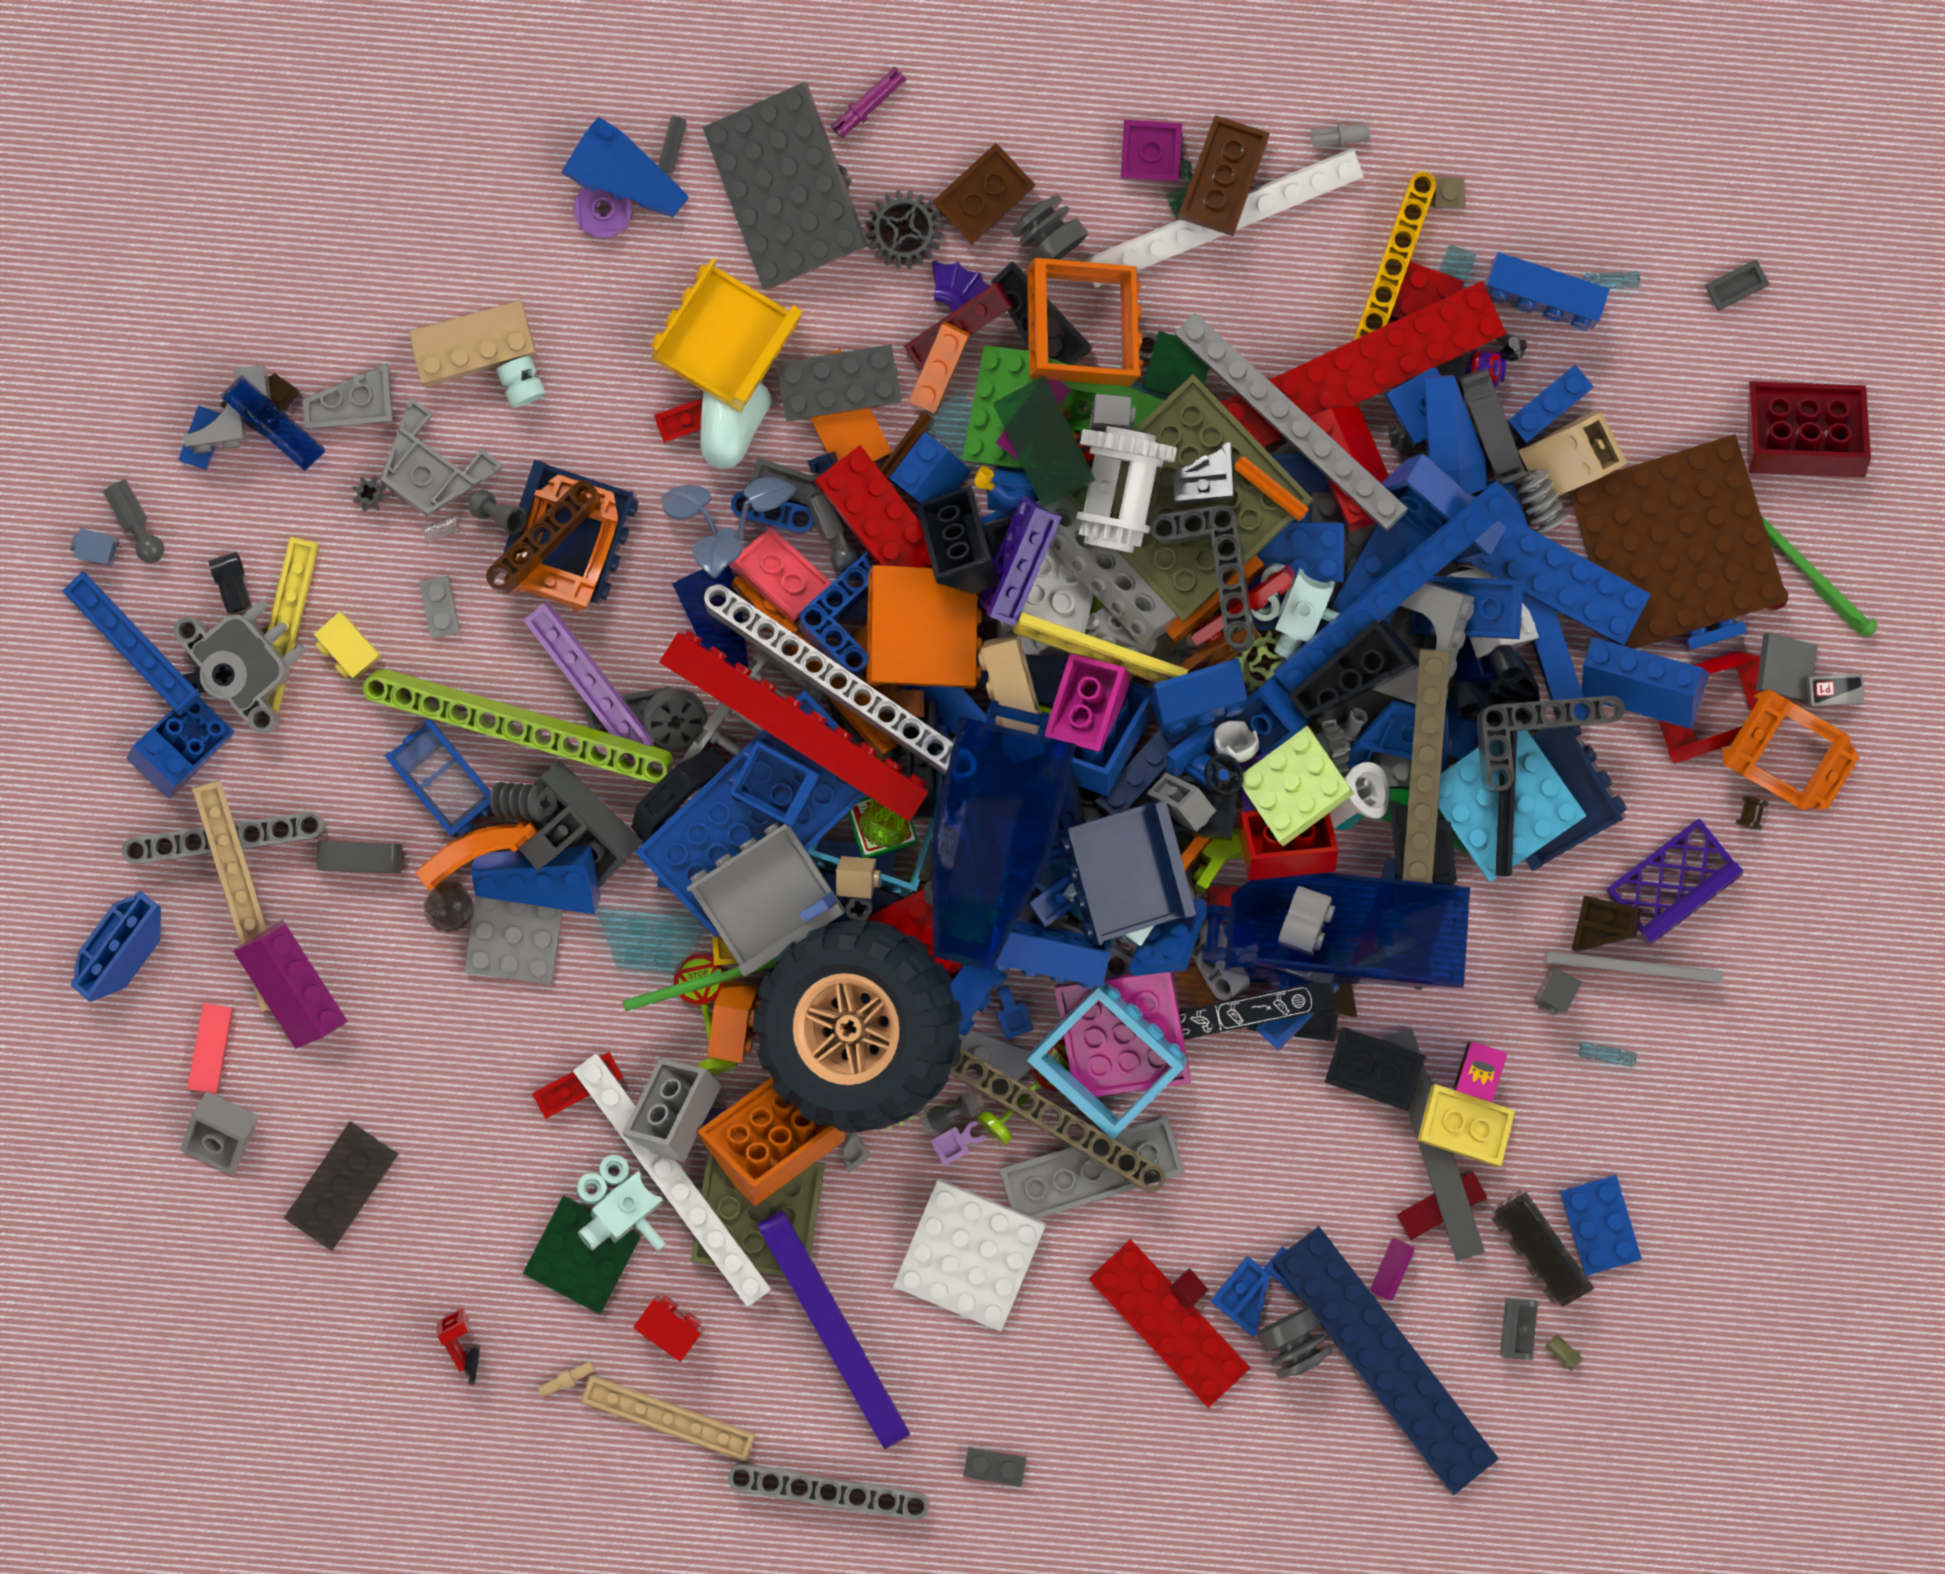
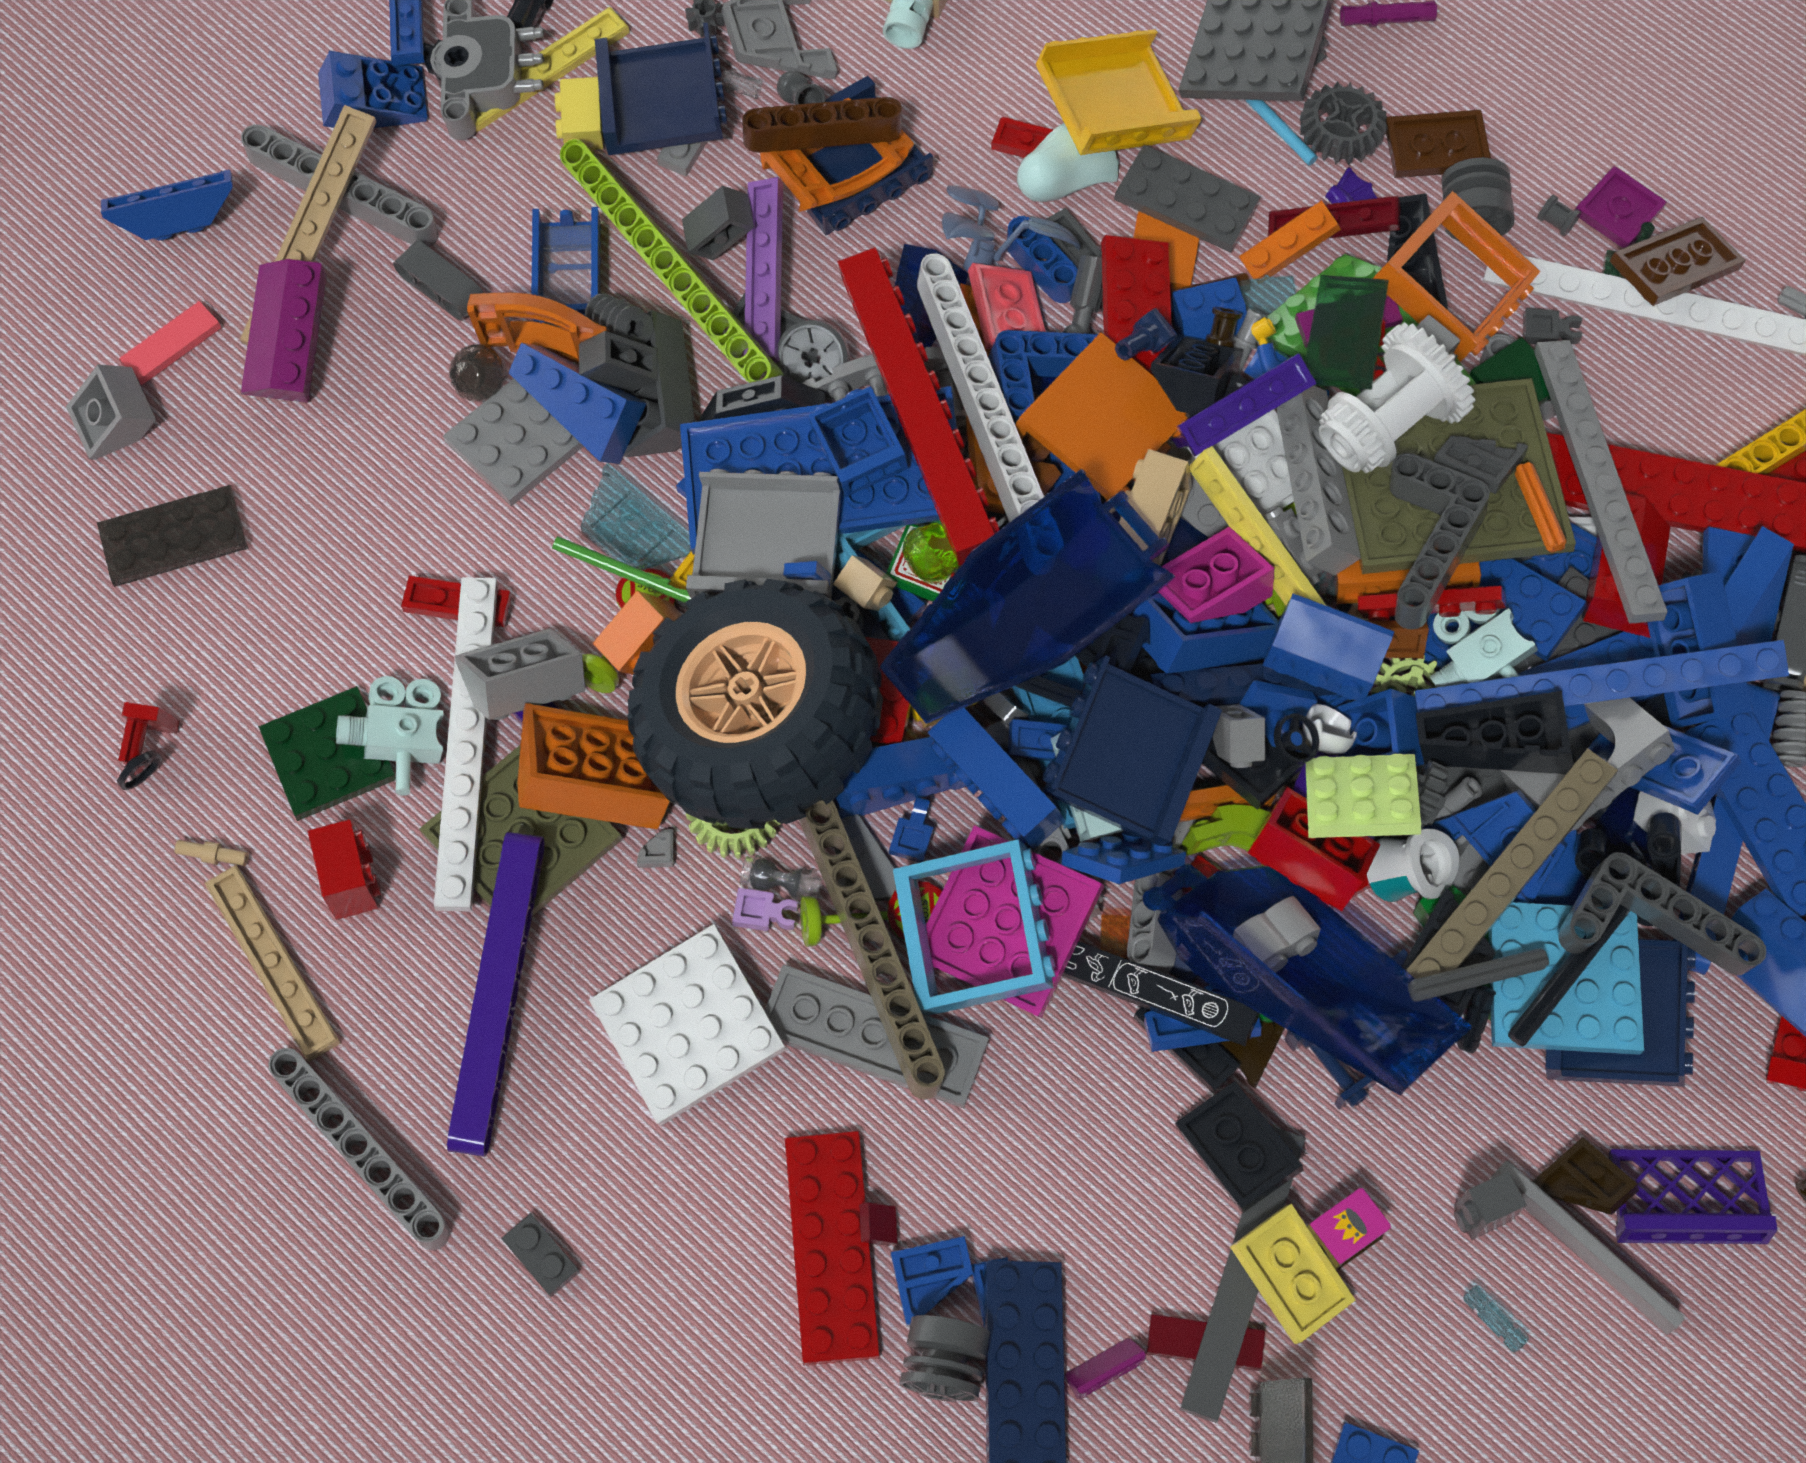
camera: 35 degrees right, 20 degrees down
(392, 586) = (660, 94): none -> dark blue panel
(524, 666) = (717, 223): none -> dark grey brick
(871, 267) = (1283, 131): none -> medium azure bar
(907, 537) = (1148, 333): none -> dark blue pin
(945, 480) = (1223, 326): none -> dark brown bush
(965, 470) = (1244, 337): none -> light grey axle
(1112, 191) = (1559, 215): none -> dark grey bush
(1164, 296) = (1545, 326): none -> dark grey plate
(1451, 850) = (1478, 974): none -> dark grey axle
(1466, 868) = (1477, 1017): none -> black axle

